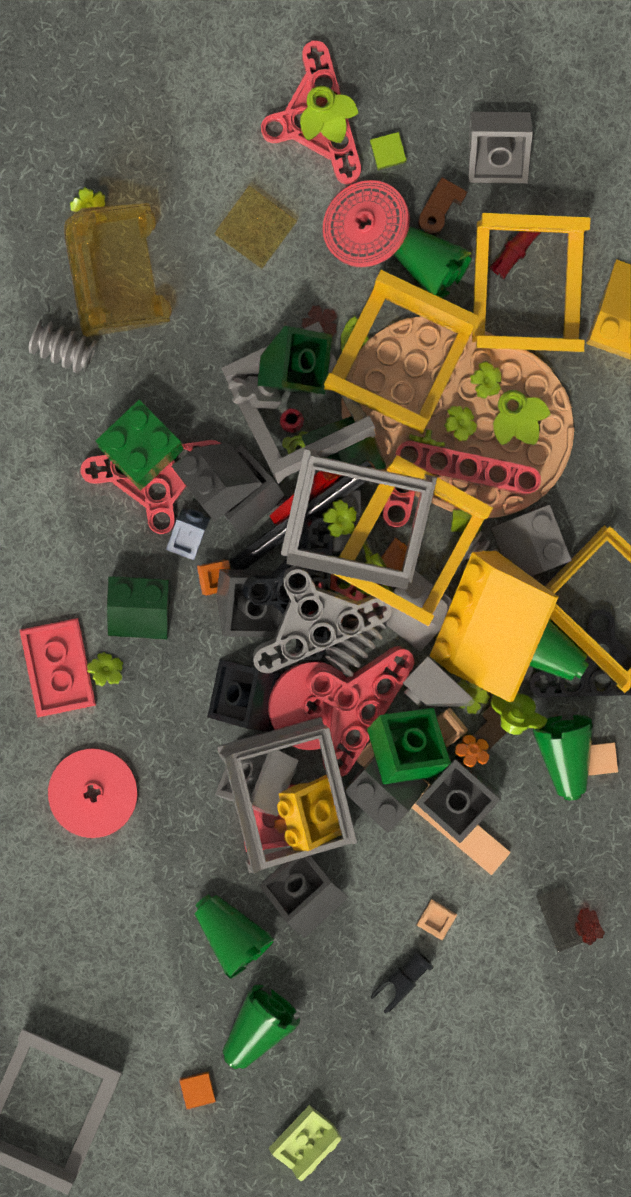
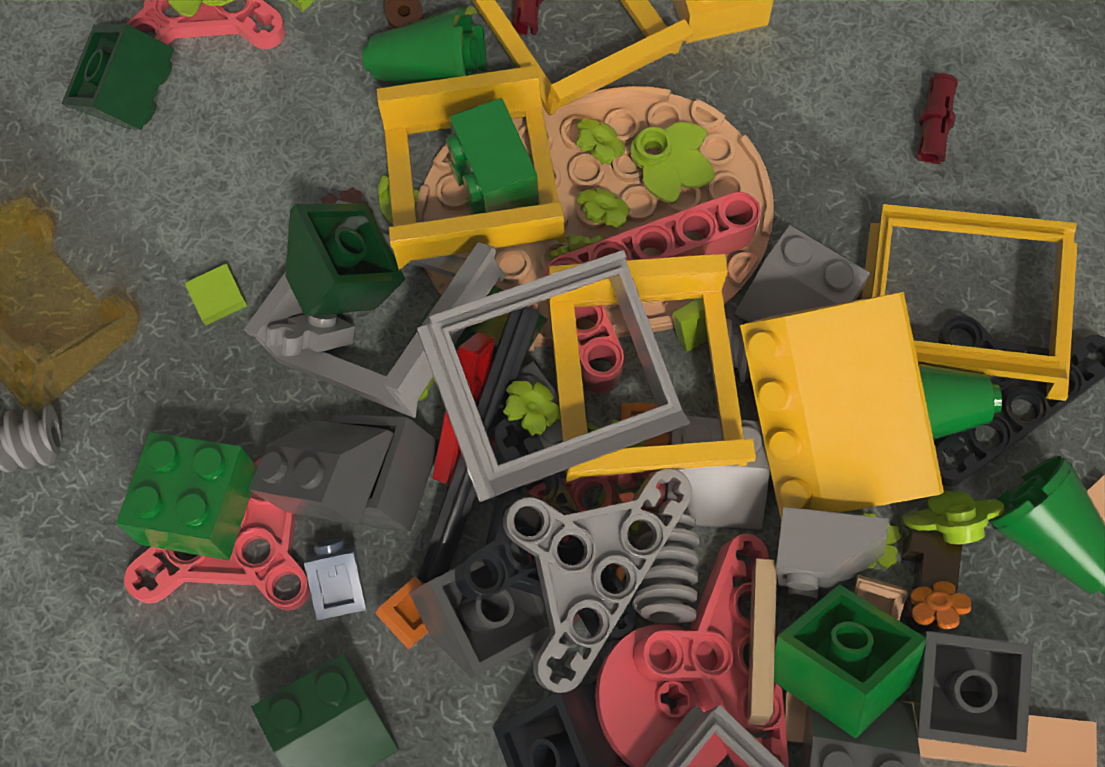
camera: 35 degrees left, 20 degrees down
(219, 327) = (215, 294): none -> lime tile
(242, 153) = (119, 75): none -> dark green slope
(255, 227) = (189, 155): clear yellow tile -> none
(291, 428) = (380, 332): dark red pin -> none
(374, 710) = (762, 642): none -> tan tile
(375, 242) = (325, 64): coral piece -> none
(413, 364) = (491, 160): none -> green brick

